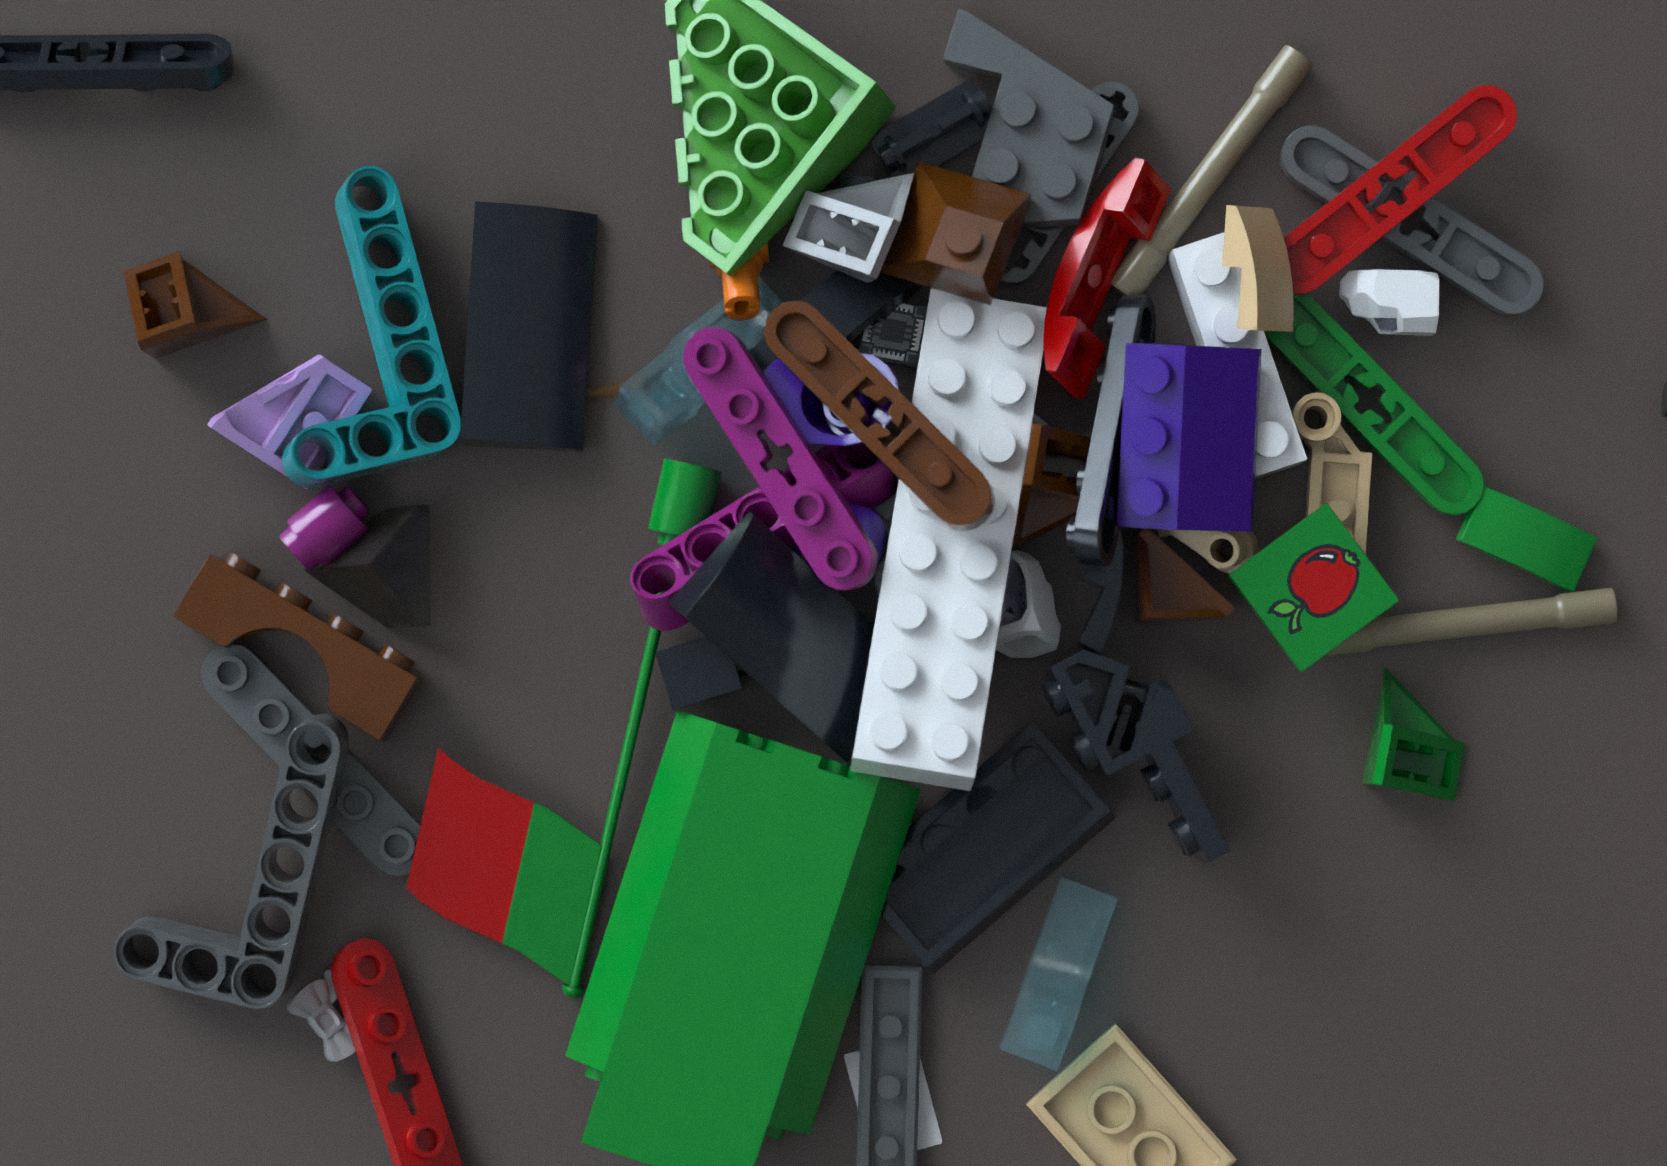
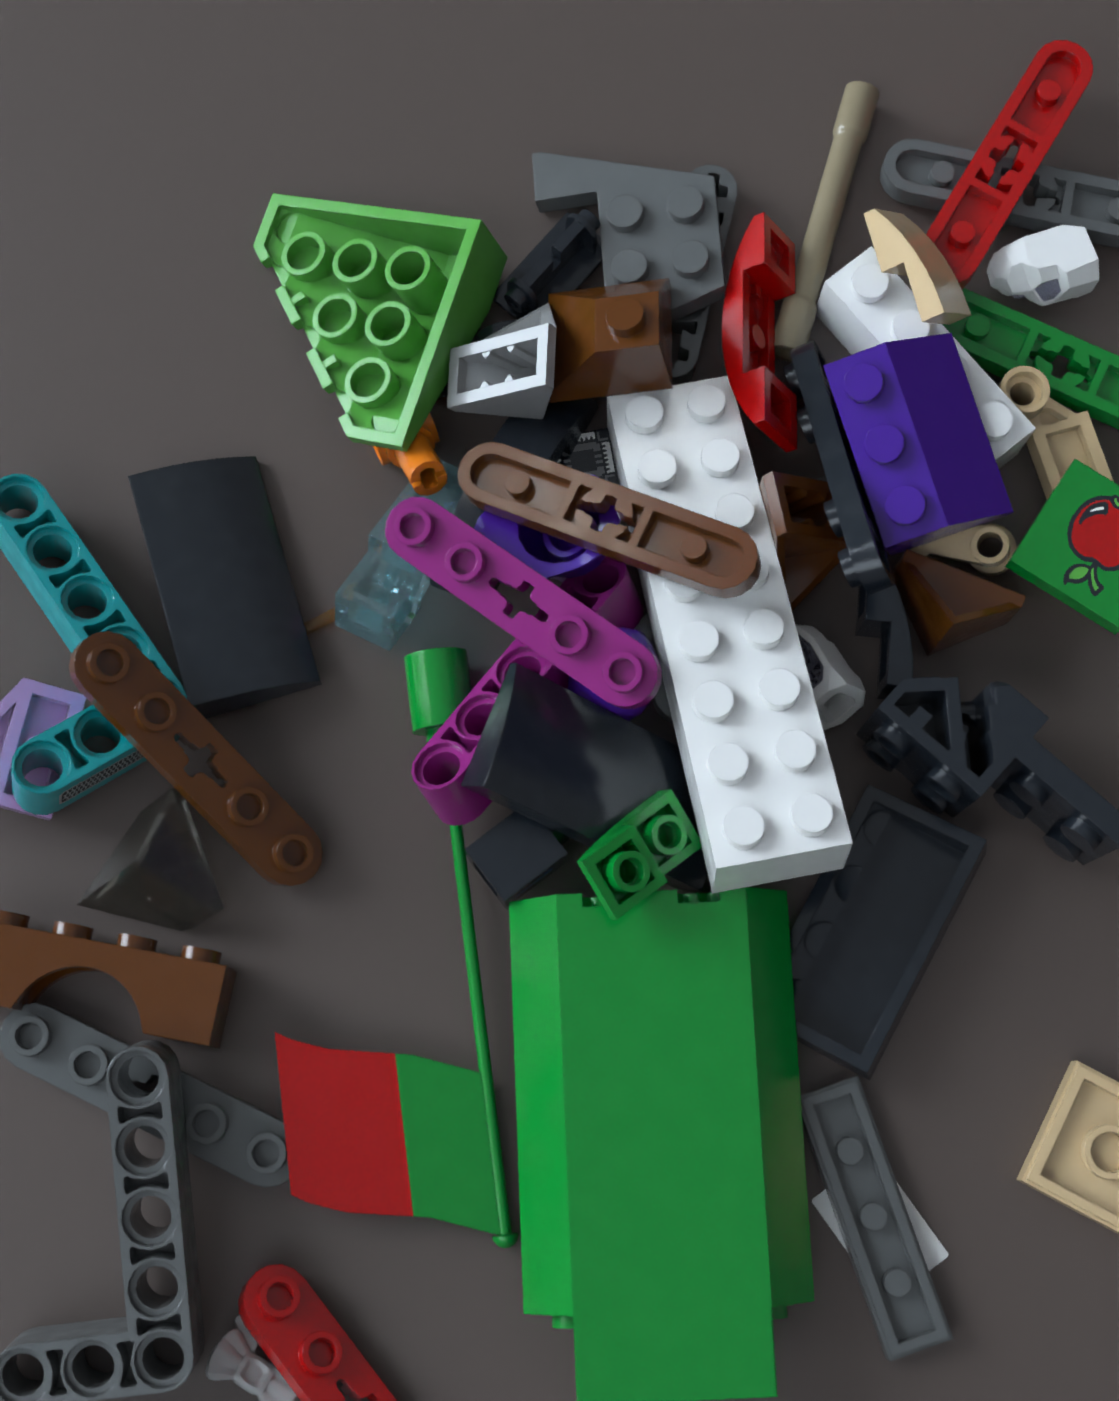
camera: 25 degrees left, 10 degrees down
(325, 526) = (82, 848): magenta brick -> none
(424, 440) = (150, 713): none -> reddish brown piece
(799, 712) = (638, 852): none -> green slope
(1058, 974) = (999, 1032): clear light blue slope -> none

